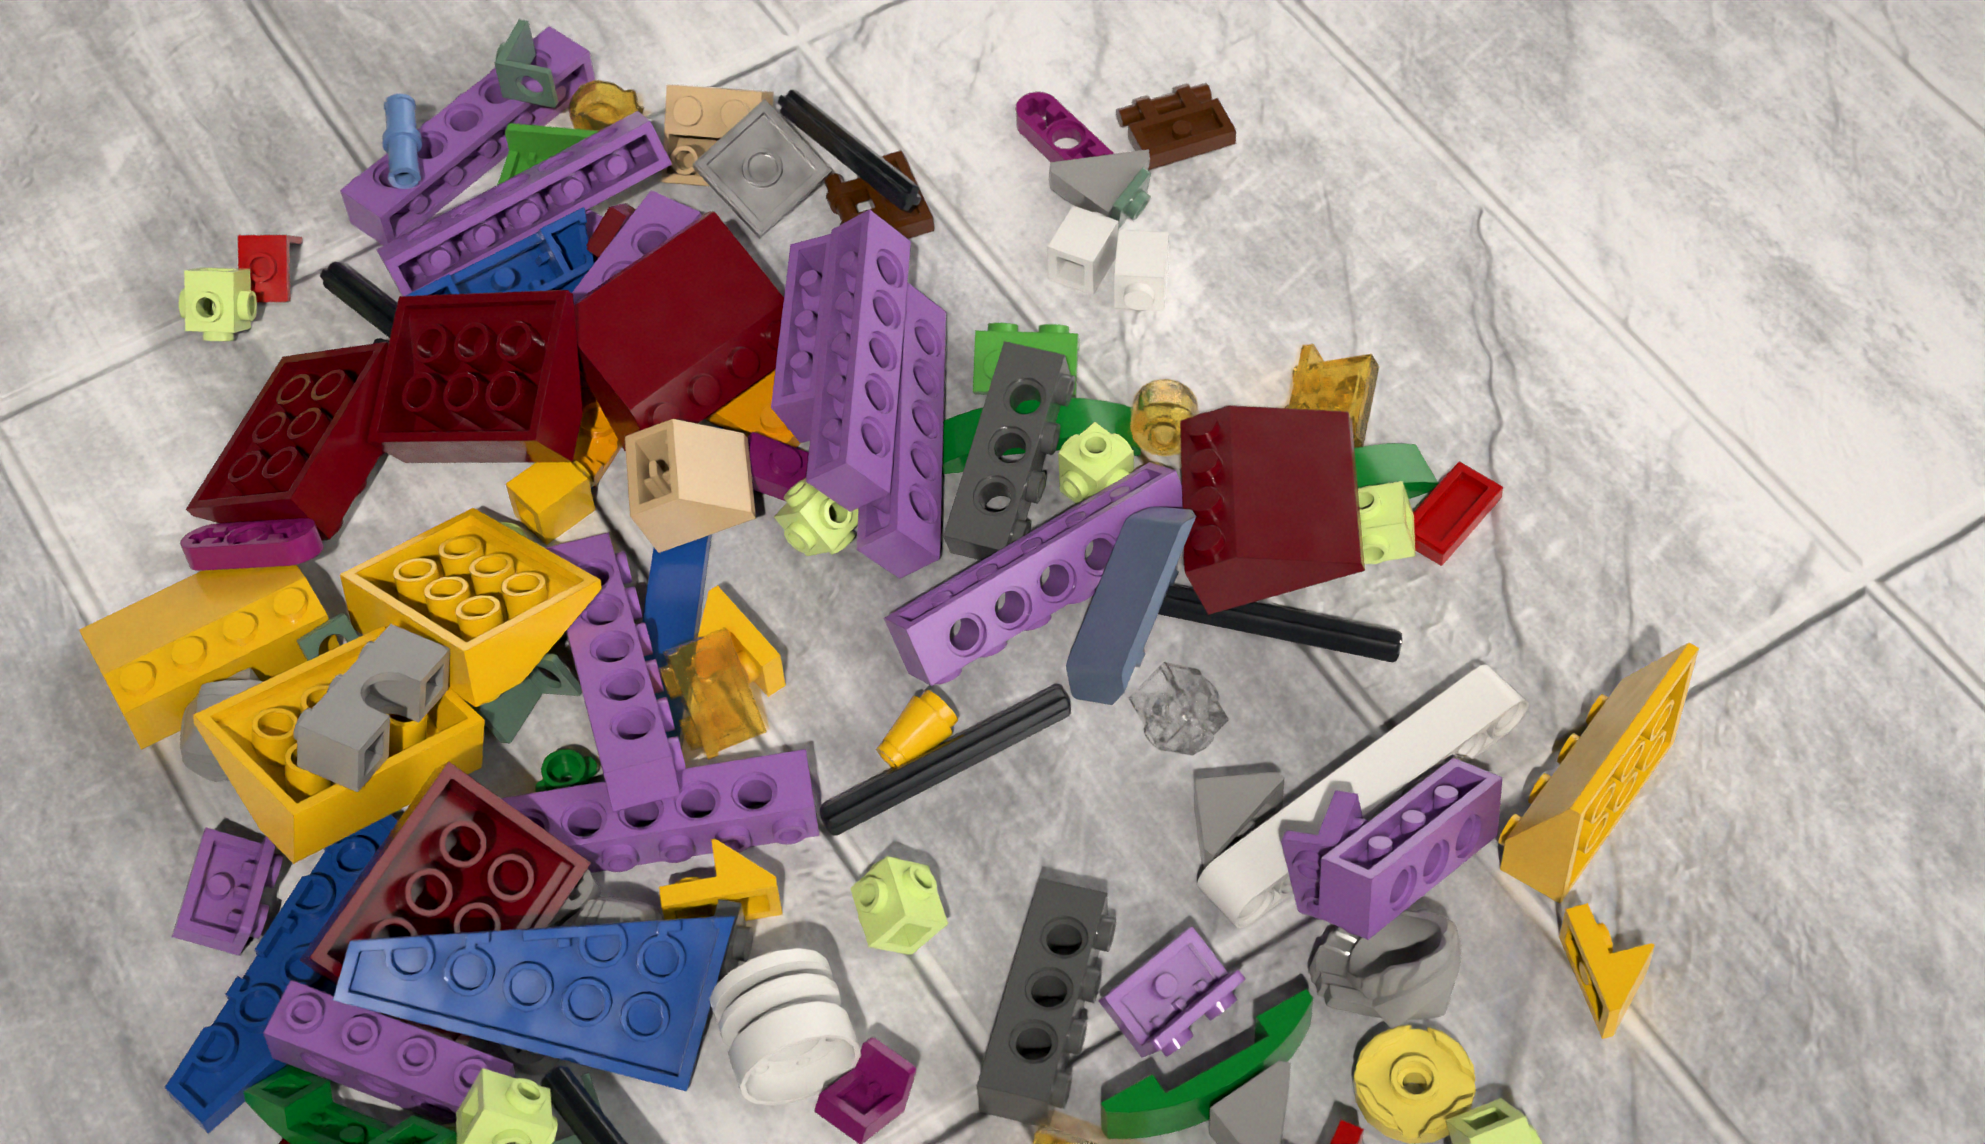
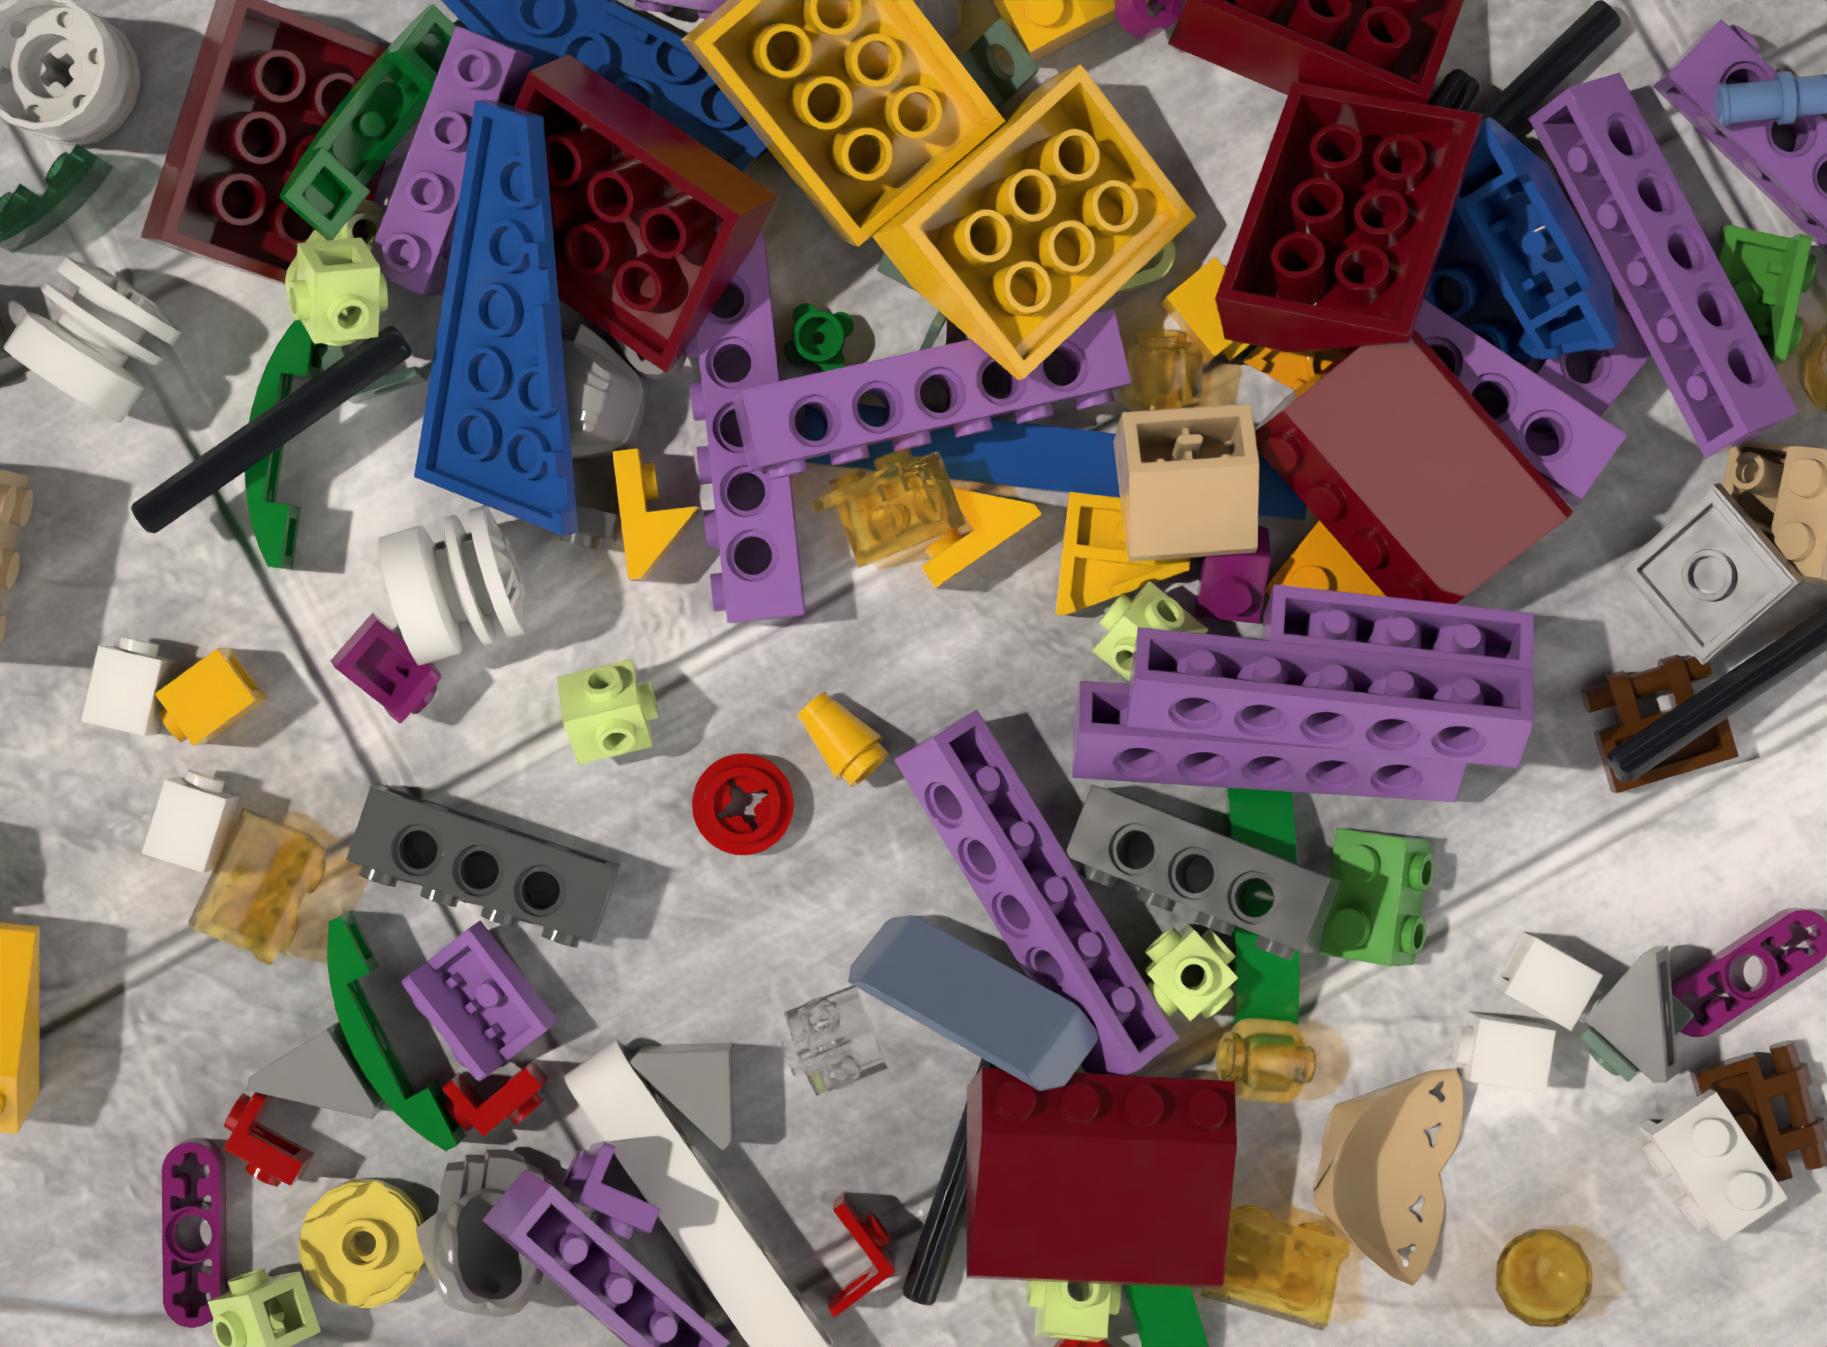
camera: 90 degrees right, 35 degrees up
(349, 727) = (898, 143): light grey arch -> none
(603, 513) = (1163, 371): none -> clear yellow head
(609, 227) = (1583, 383): dark red tile -> none
(751, 557) = (1096, 559): none -> yellow wing
(945, 761) = (806, 771): black axle -> none
(985, 785) = (734, 833): none -> red gear
(1215, 143) = (1713, 1165): none -> white bracket
(1241, 347) = (1381, 1164): none -> tan piece
(1263, 967) = (511, 1100): none -> red bracket
(1315, 234) = (1543, 1277): none -> clear yellow hair
(1353, 676) = (872, 1239): none -> red bracket

